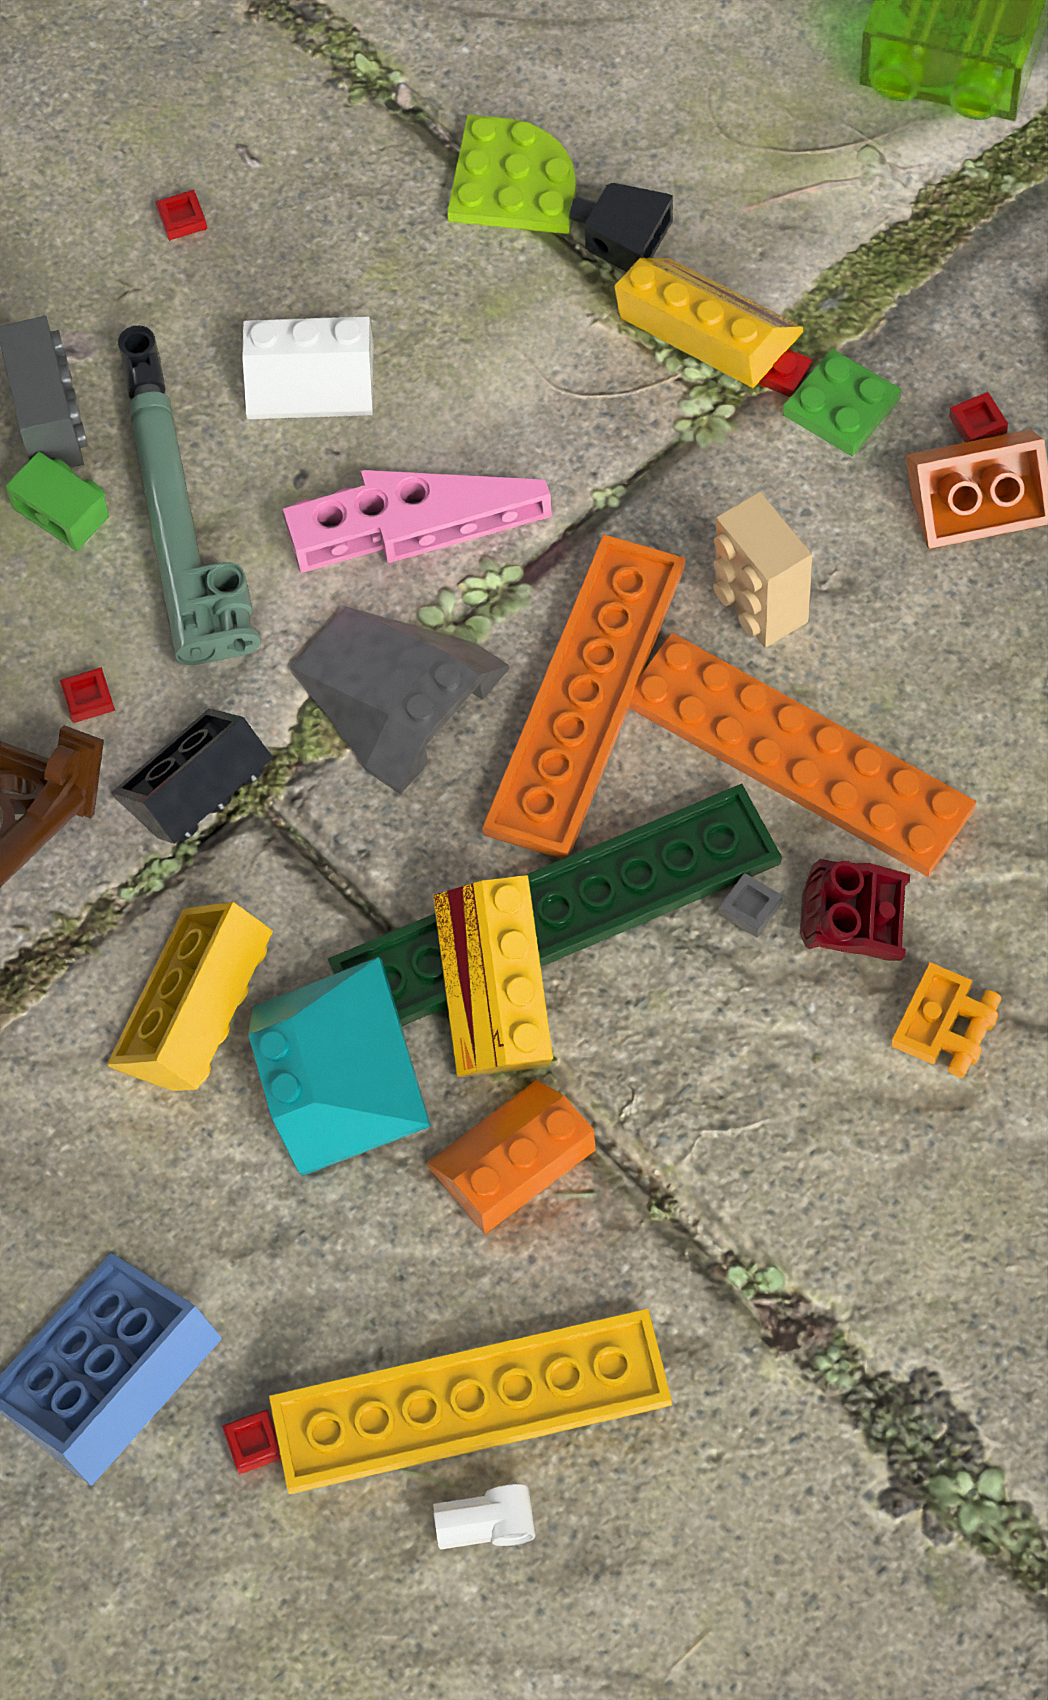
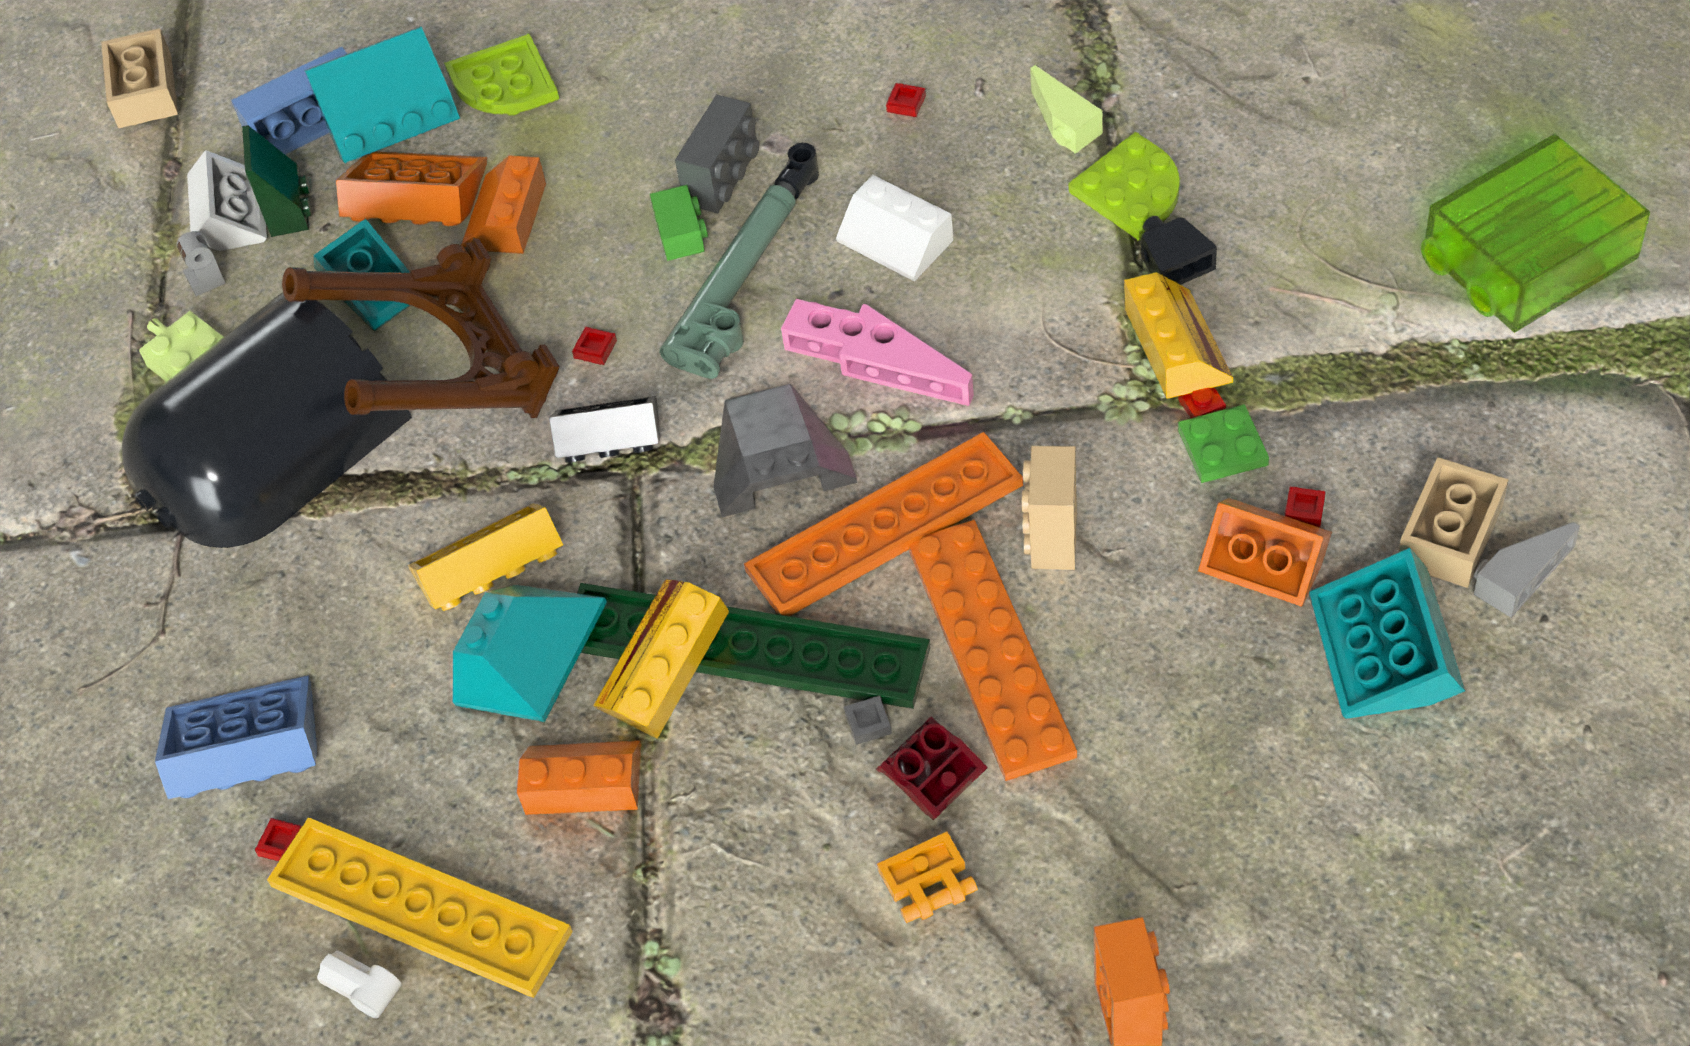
camera: 40 degrees right, 10 degrees down
(376, 134) = (1067, 114): none -> yellowish green slope

